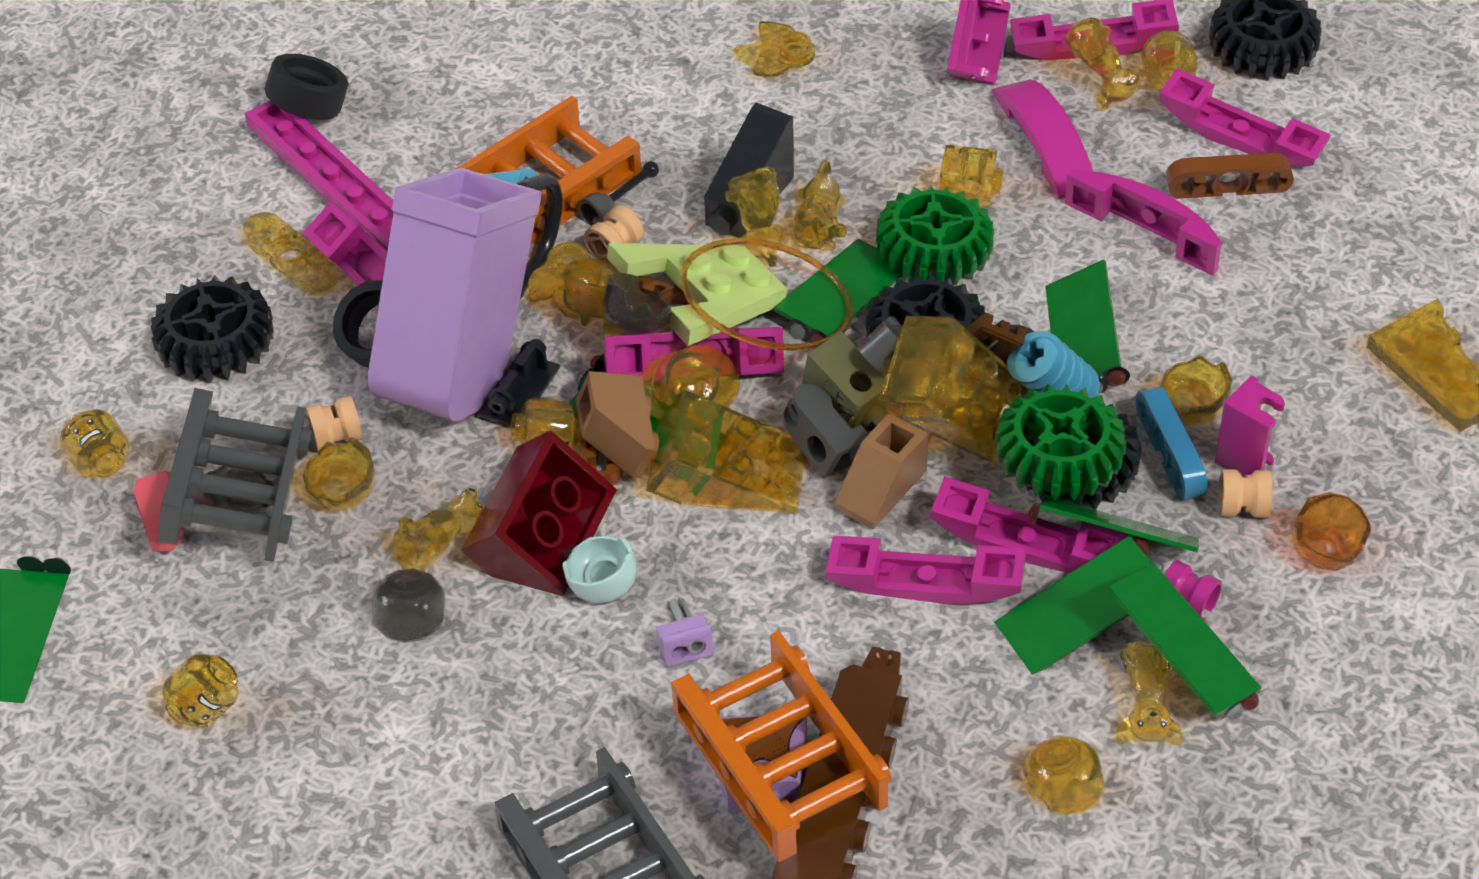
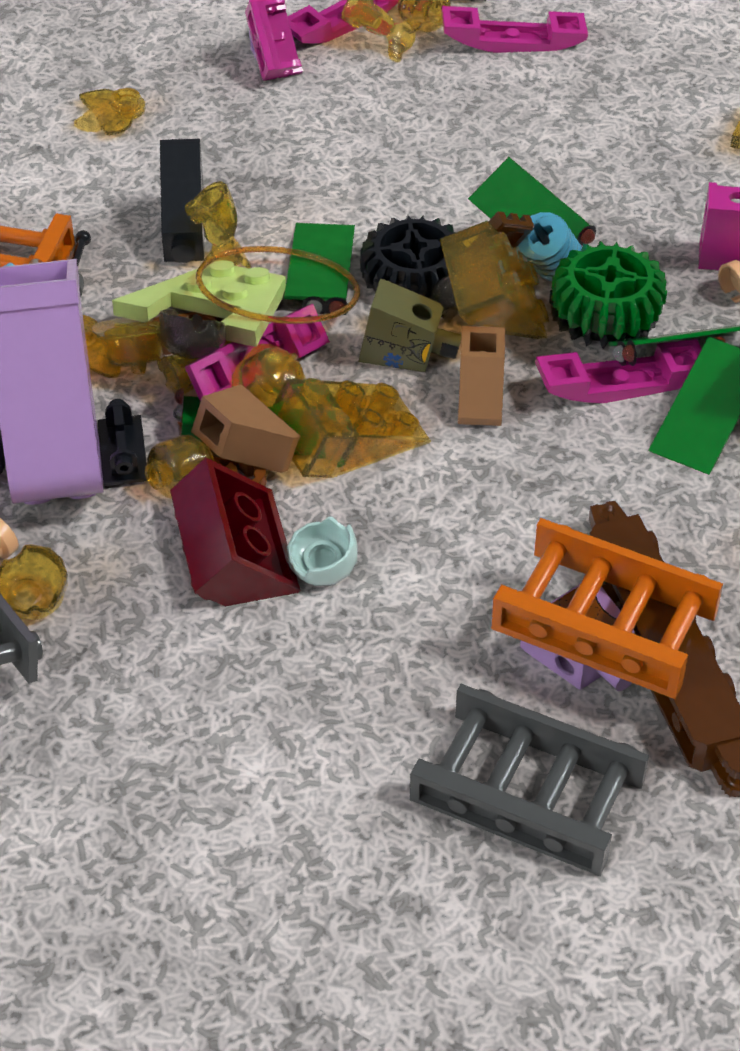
camera: 35 degrees left, 0 degrees up
(200, 690) = (61, 821): clear yellow head -> none
(408, 605) = (178, 661): clear smoke hair -> none
(432, 534) = (151, 596): clear yellow animal -> none
(619, 226) = (100, 289): light nougat wheel -> none
(686, 637) = (432, 573): lavender piece -> none
(816, 216) = (258, 215): clear yellow animal -> none
(821, 430) = (407, 366): dark grey leg -> none
(881, 345) = (421, 275): dark grey leg -> none
(933, 578) = (621, 418): dark pink slope -> none
(934, 235) = (361, 192): green gear -> none
(972, 172) = (349, 141): clear yellow brick -> none
(1046, 129) = (382, 86): dark pink slope -> none
(1104, 193) = (506, 112): dark pink slope -> none
(1173, 442) = (687, 276): dark azure beam -> none
(1198, 389) = (652, 216): clear yellow hair -> none
(1215, 166) = (517, 75): dark orange beam -> none

